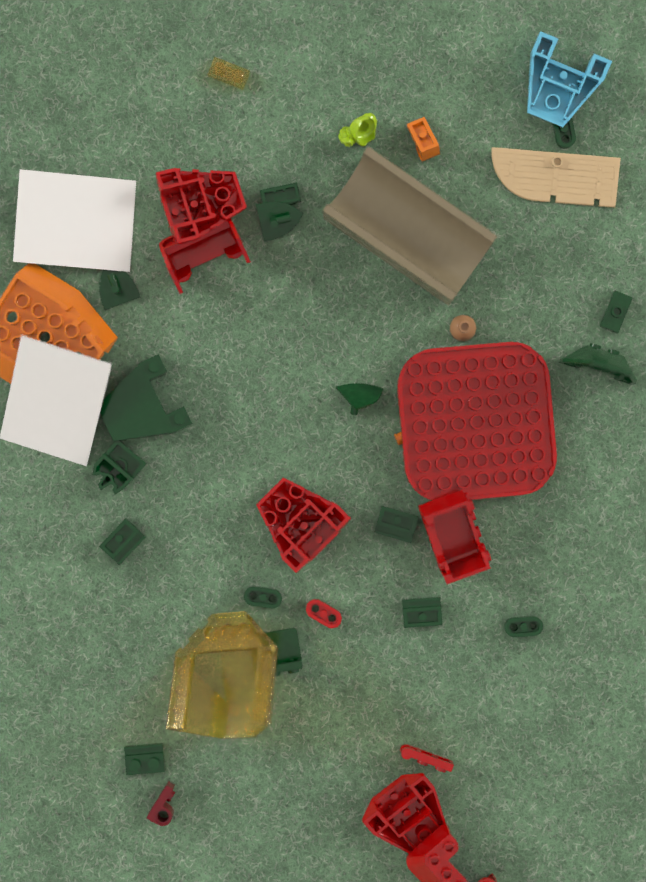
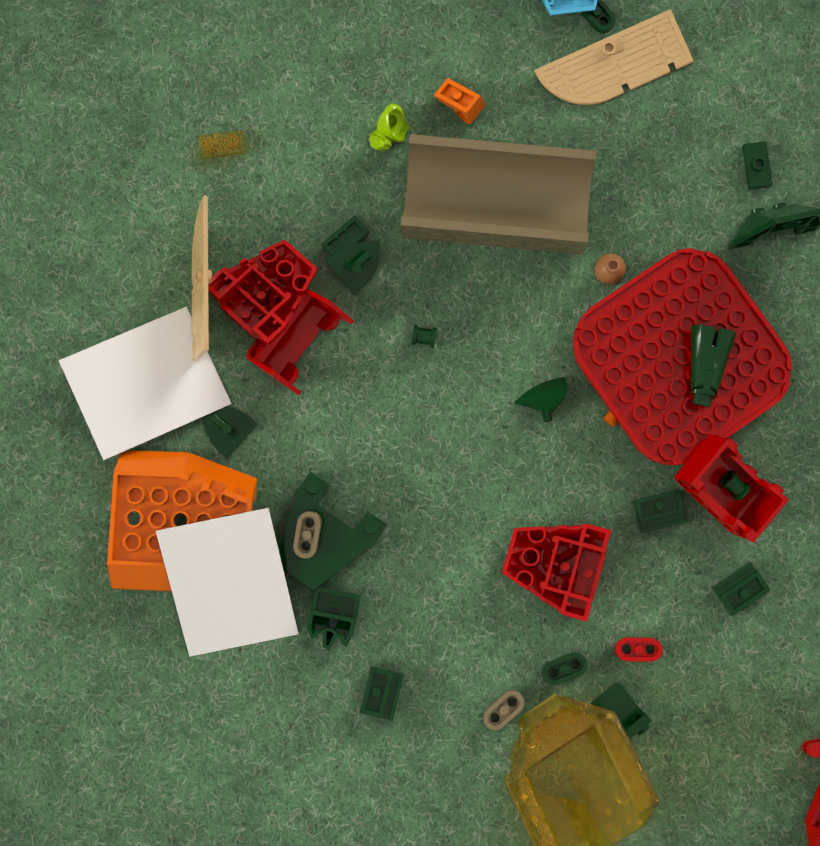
camera: 30 degrees left, 5 degrees down
(131, 398) = (307, 533): none -> dark tan plate
(156, 167) = (200, 279): none -> tan door
(203, 602) = (503, 709): none -> dark tan plate
(297, 301) = (424, 336): none -> dark green bush
(459, 536) = (734, 485): none -> dark green bush
(492, 436) = (708, 360): none -> dark green piece

